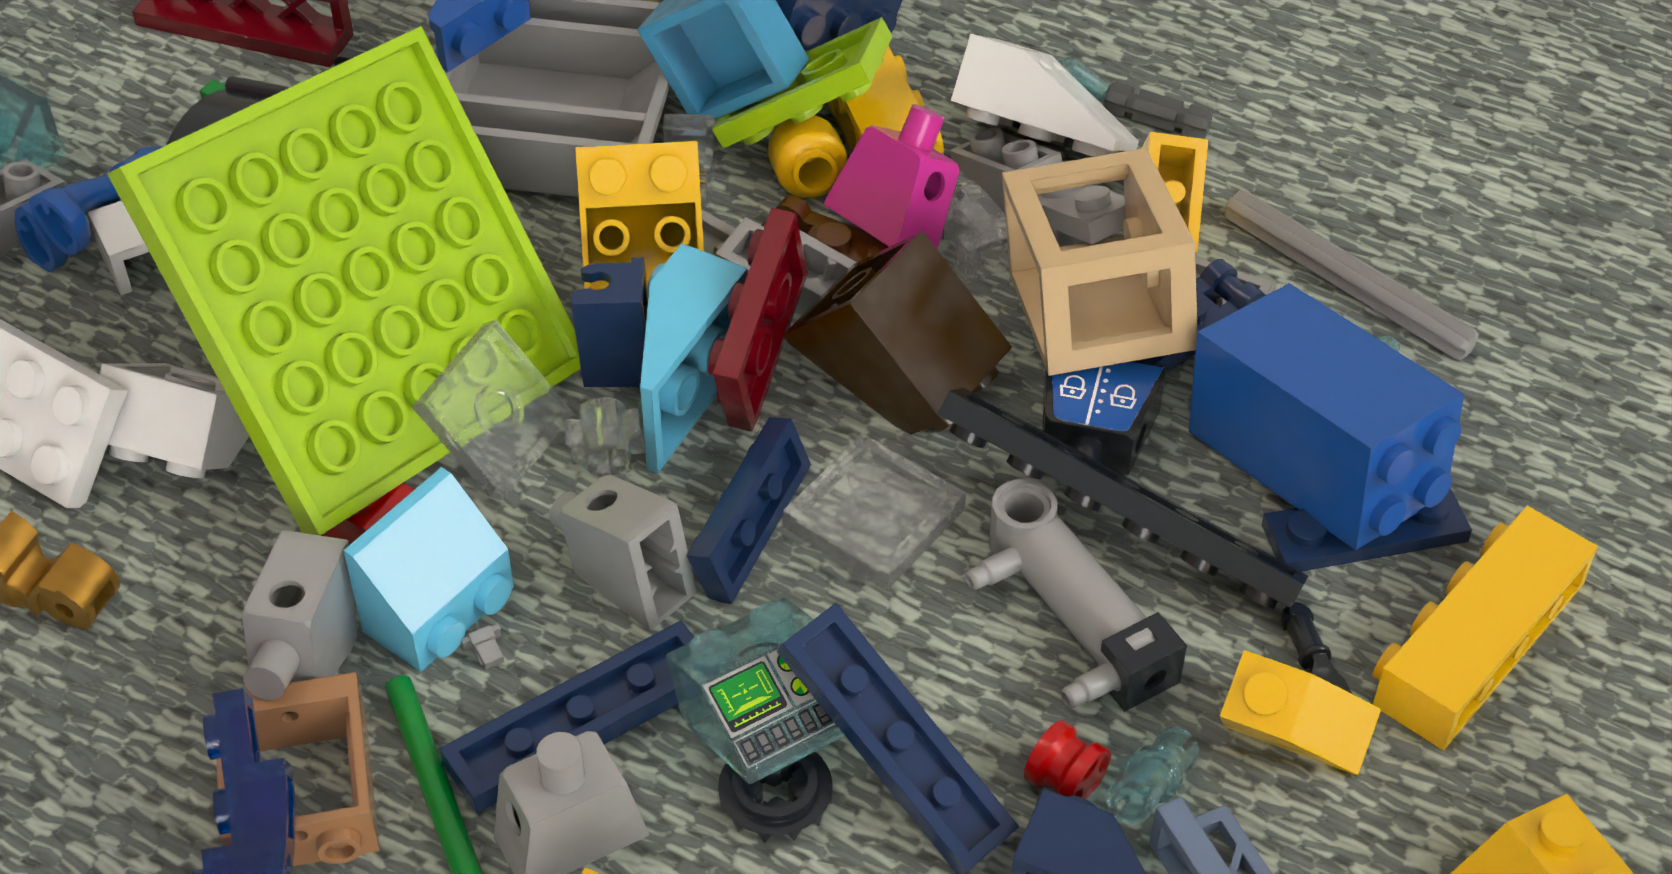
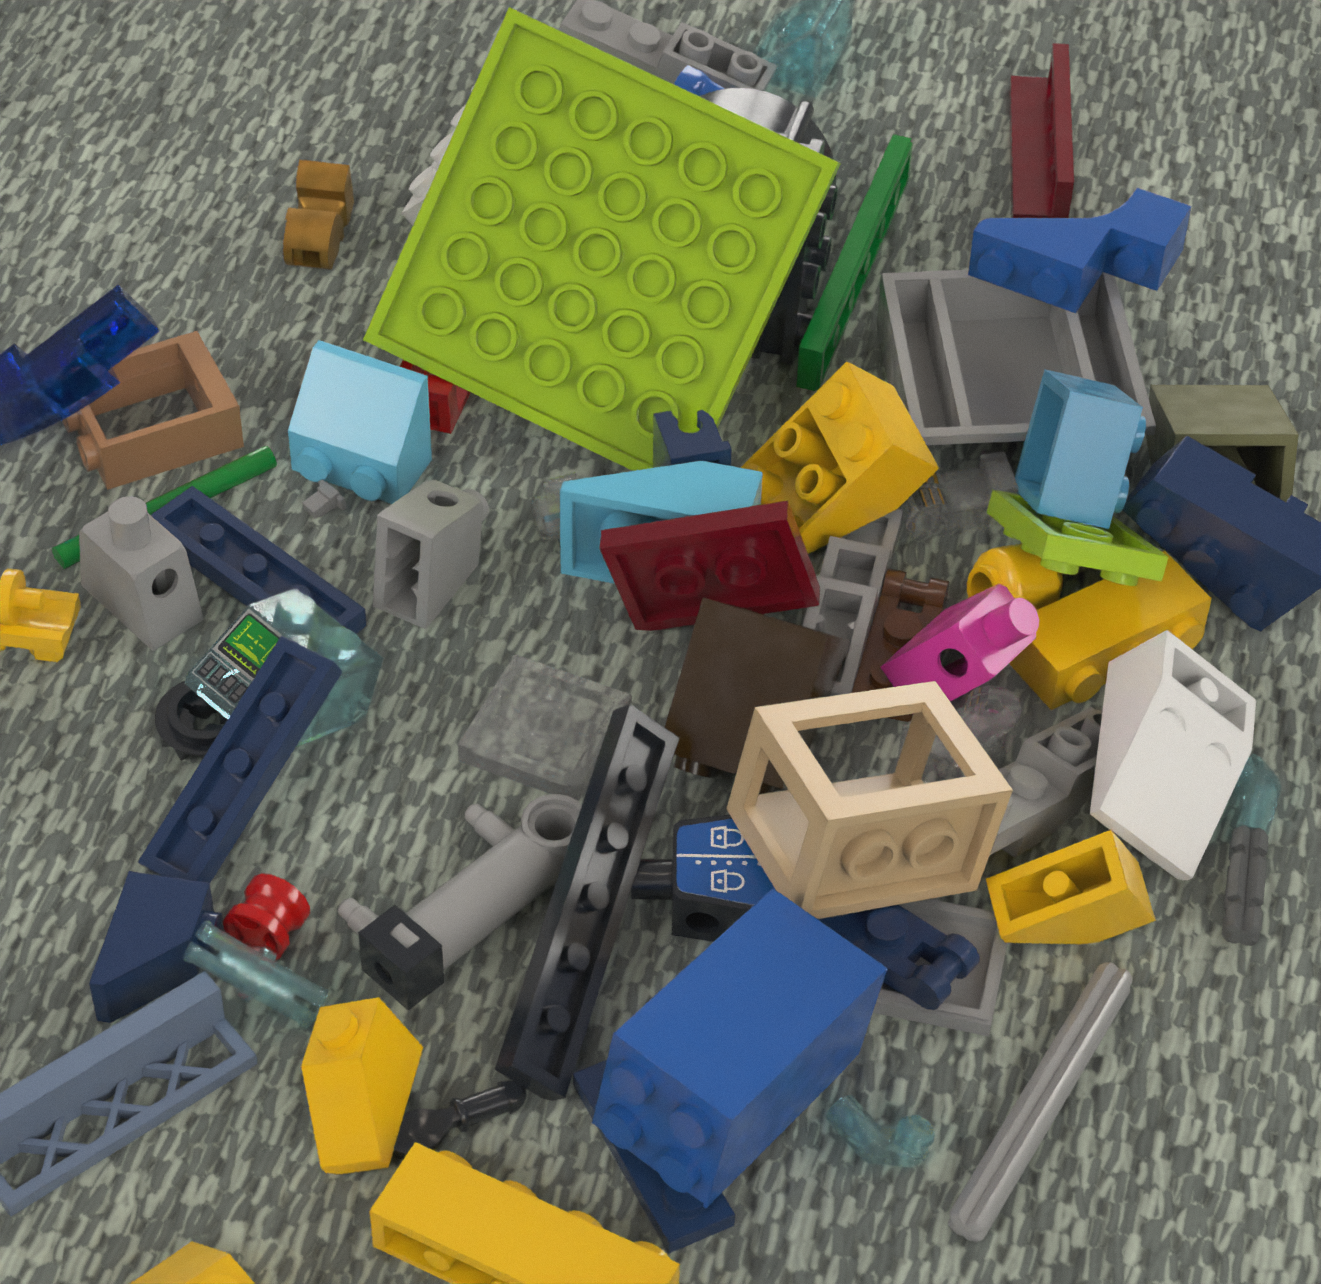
camera: 75 degrees right, 0 degrees up
(294, 632) = (270, 350): light grey torso -> none
(493, 410) = (561, 420): clear tile -> none
(749, 510) = (496, 628): dark blue plate -> none

